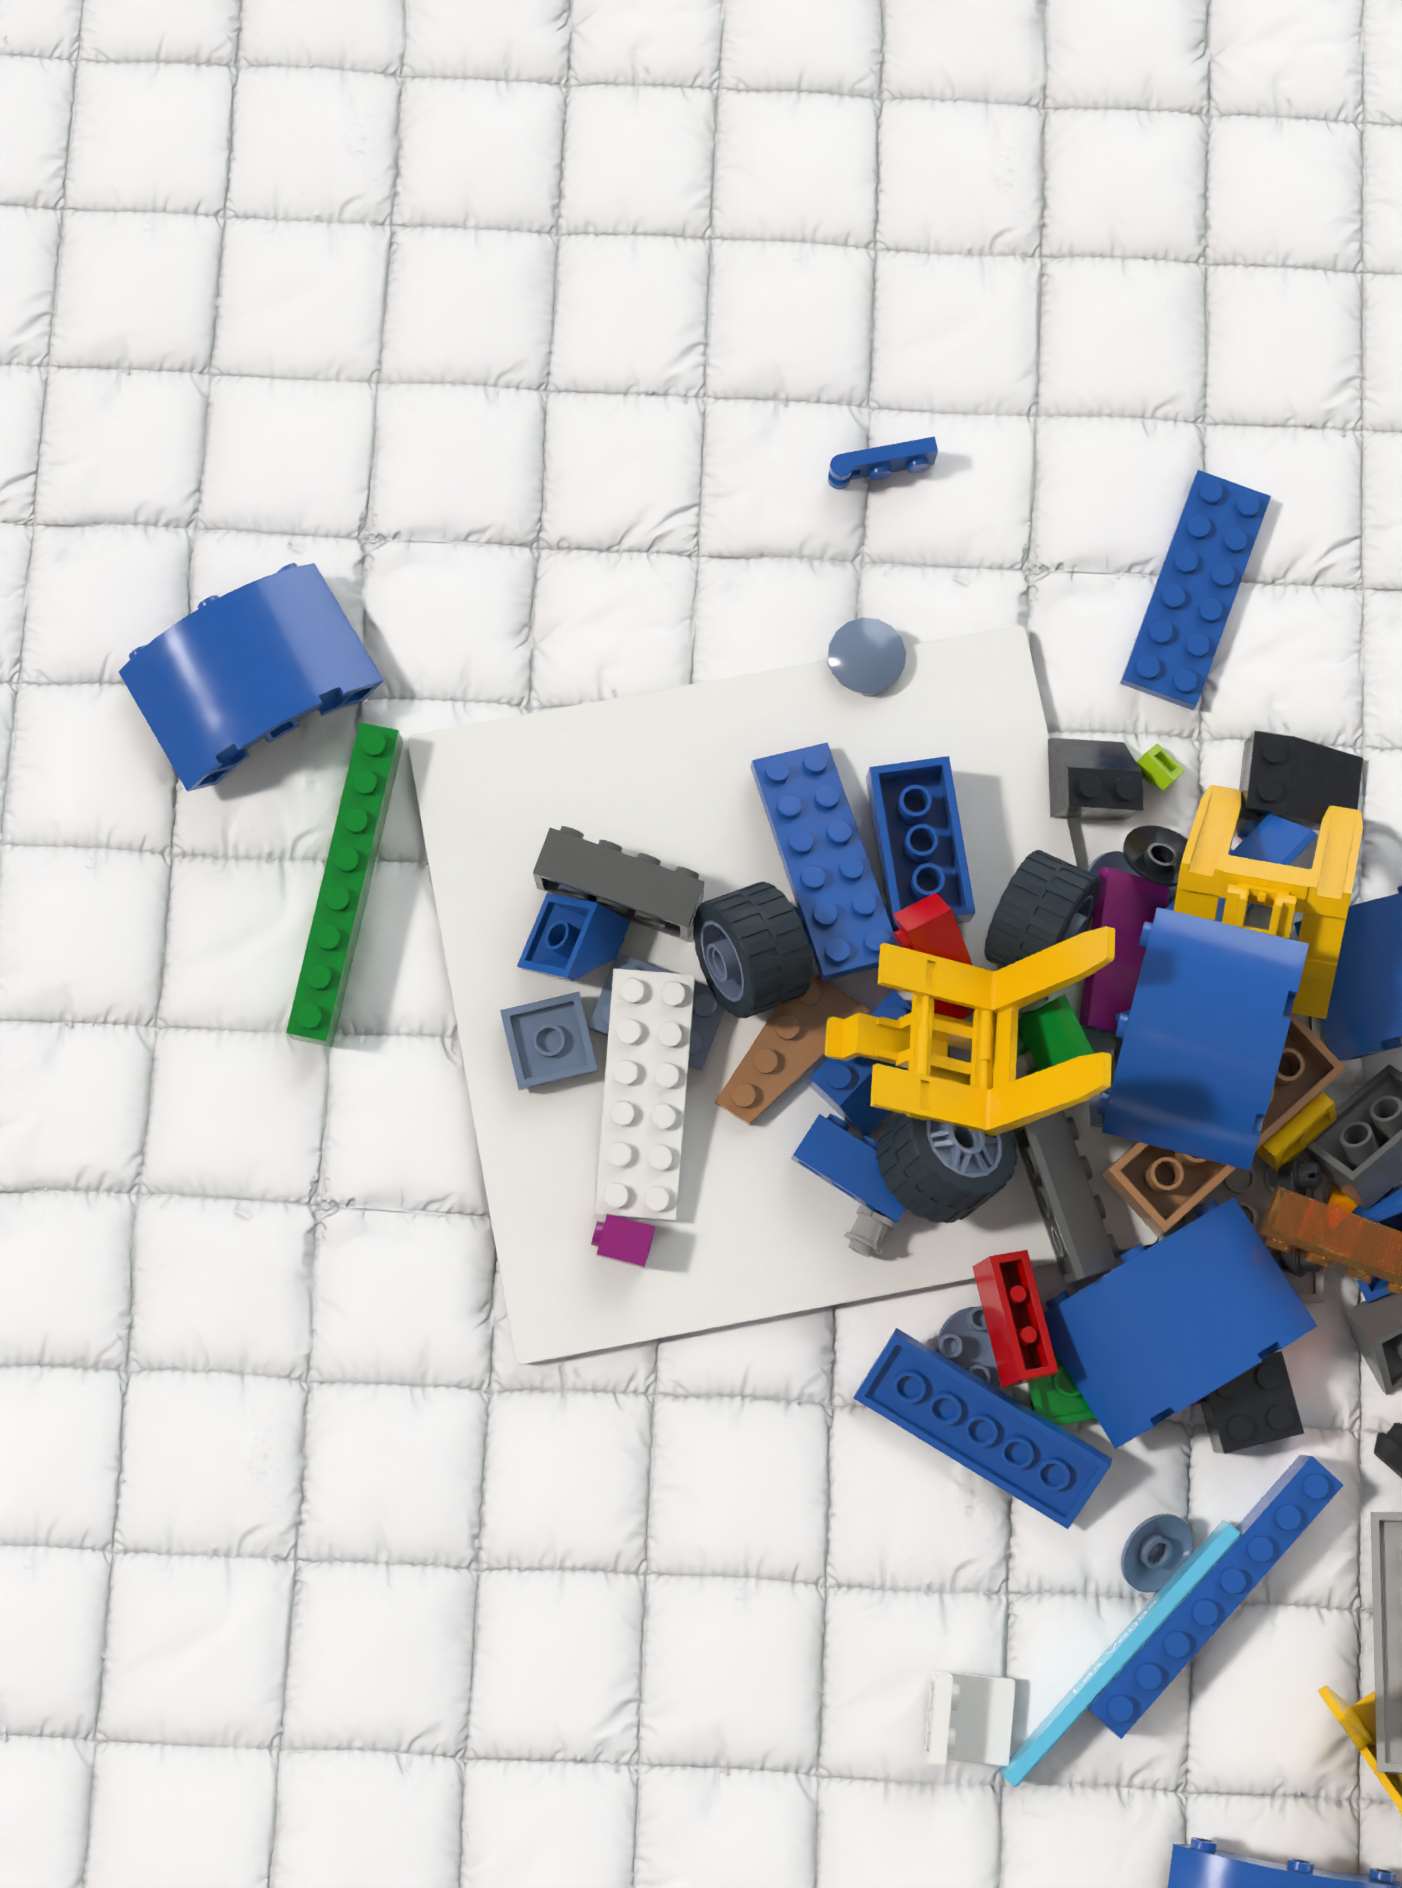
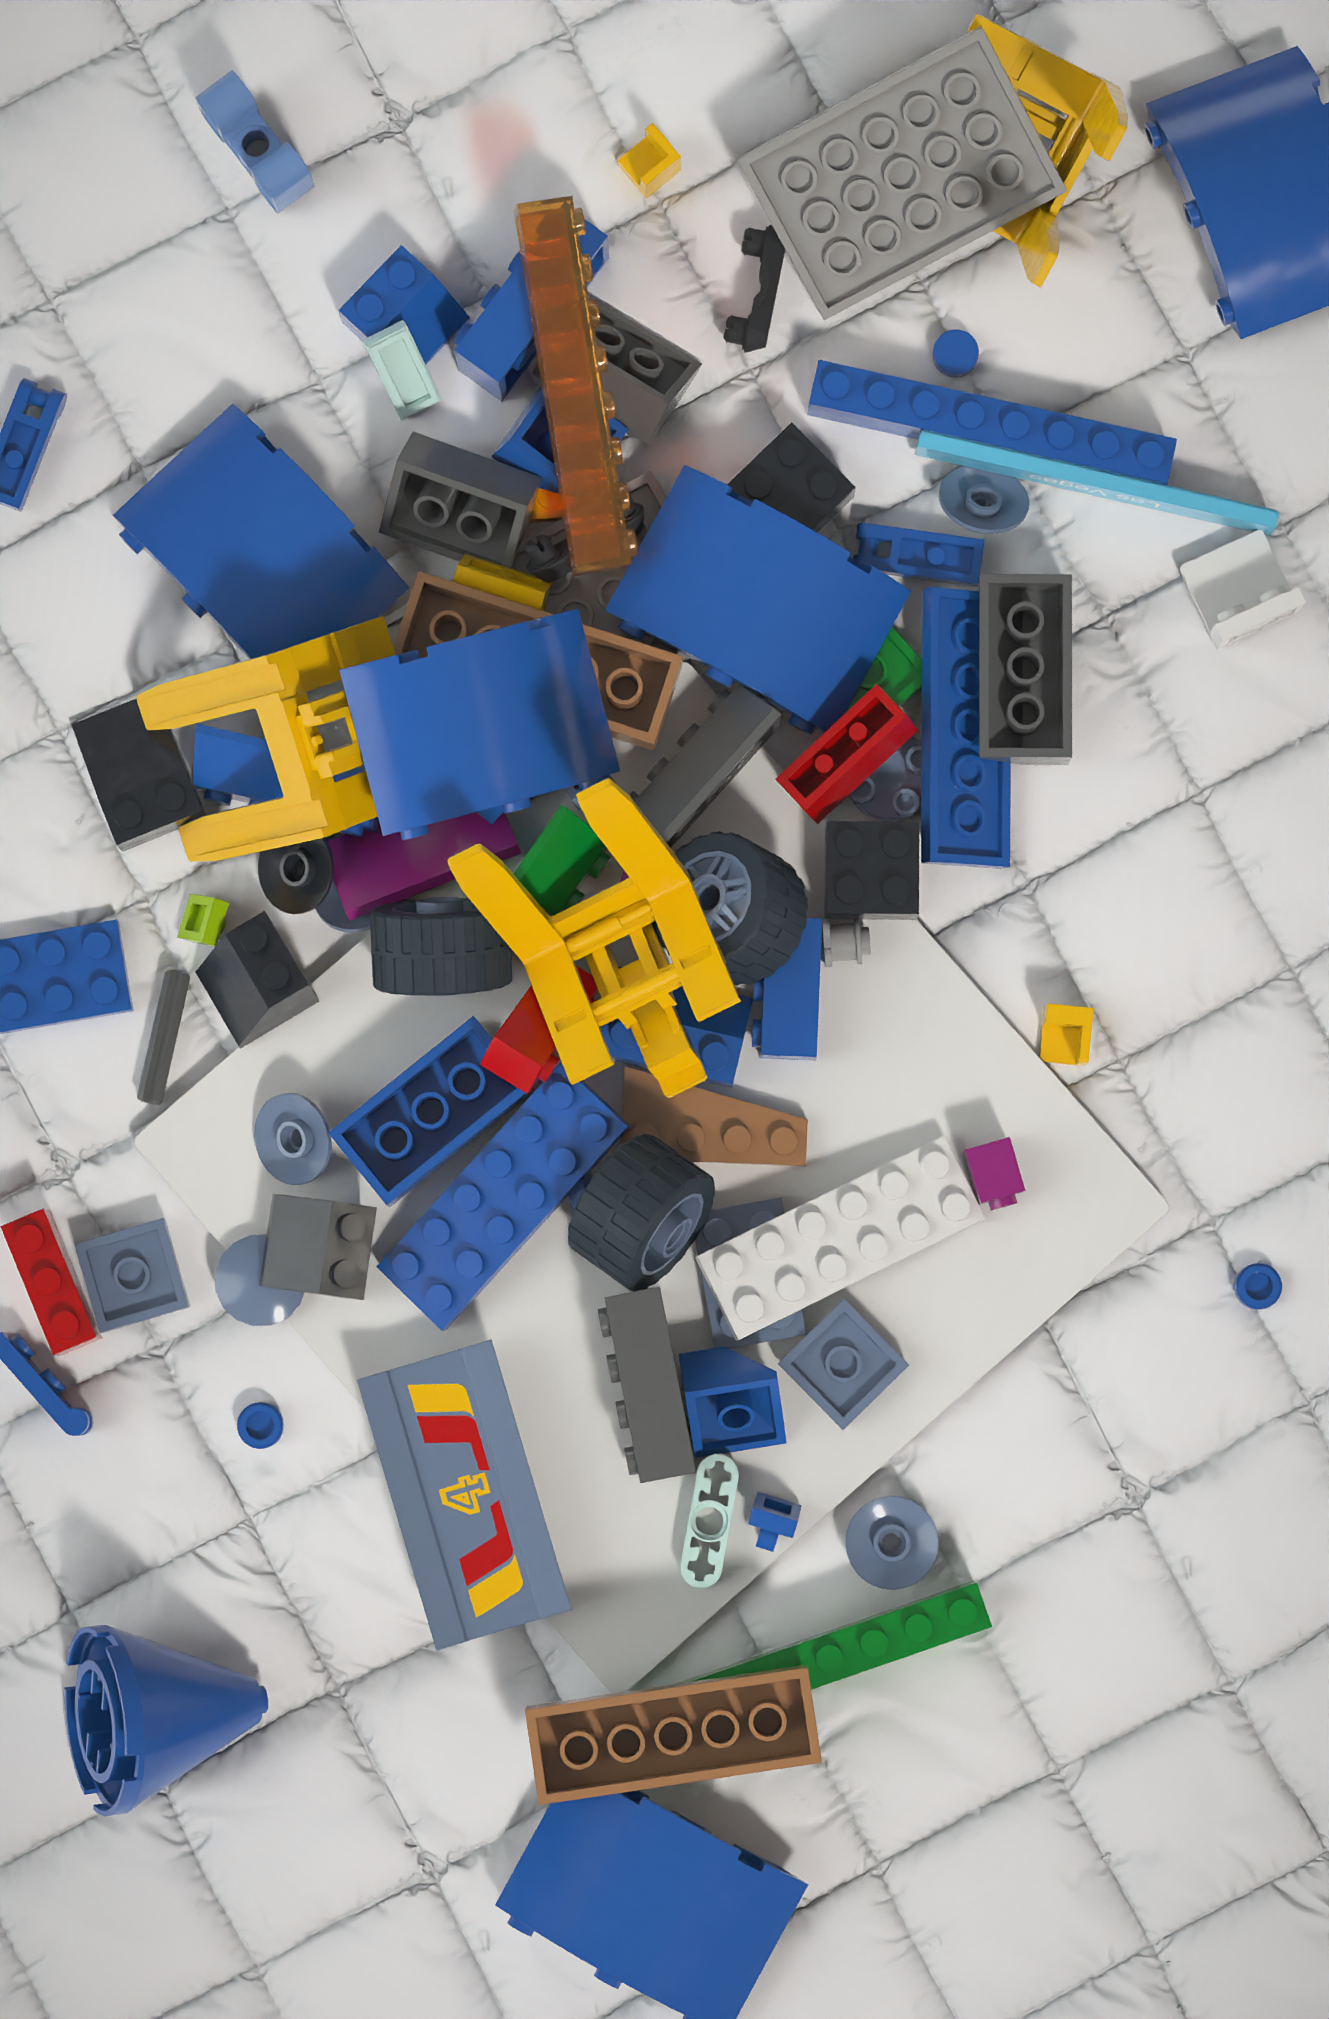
camera: 115 degrees left, 5 degrees up
(351, 745) = (673, 1734): none -> medium nougat brick
(392, 980) = (917, 1542): none -> sand blue dish
(417, 1396) = (1258, 1286): none -> blue tile
(466, 921) = (773, 1518): none -> blue tile
(478, 848) = (691, 1553): none -> light aqua beam
(596, 401) = (148, 1714): none -> blue cone
(621, 704) = (464, 1494): none -> sand blue hinge
(697, 1363) = (1066, 1034): none -> yellow panel
(760, 600) = (260, 1425): none -> blue tile
(867, 705) = (318, 1246): none -> slope
(913, 1285) = (871, 870): none -> black brick
(924, 570) = (132, 1275): none -> sand blue plate
(953, 509) = (51, 1282): none -> red brick
(958, 734) = (280, 1142): none -> sand blue dish
(1004, 1502) = (1025, 668): none -> dark grey slope
(1088, 691) = (163, 1037): none -> dark grey axle
(1139, 1476) = (921, 554): none -> blue plate
(1286, 1602) = (955, 353): none -> blue tile

